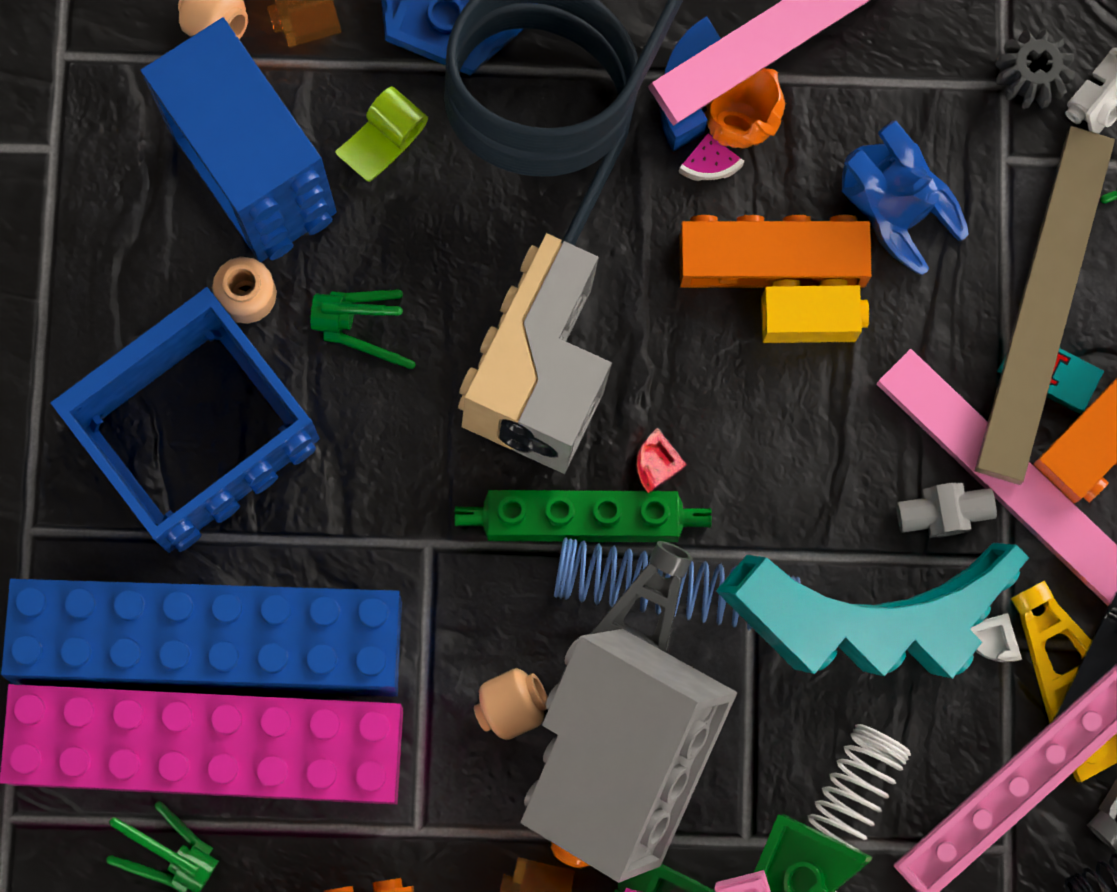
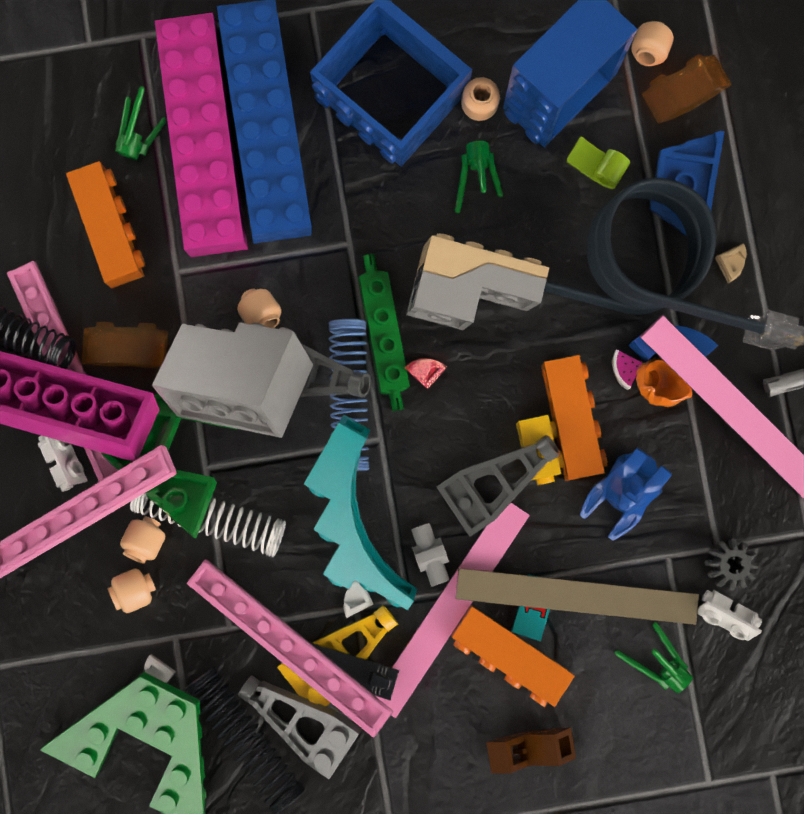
camera: 85 degrees right, 5 degrees up
(877, 437) = (467, 502): none -> dark grey plate

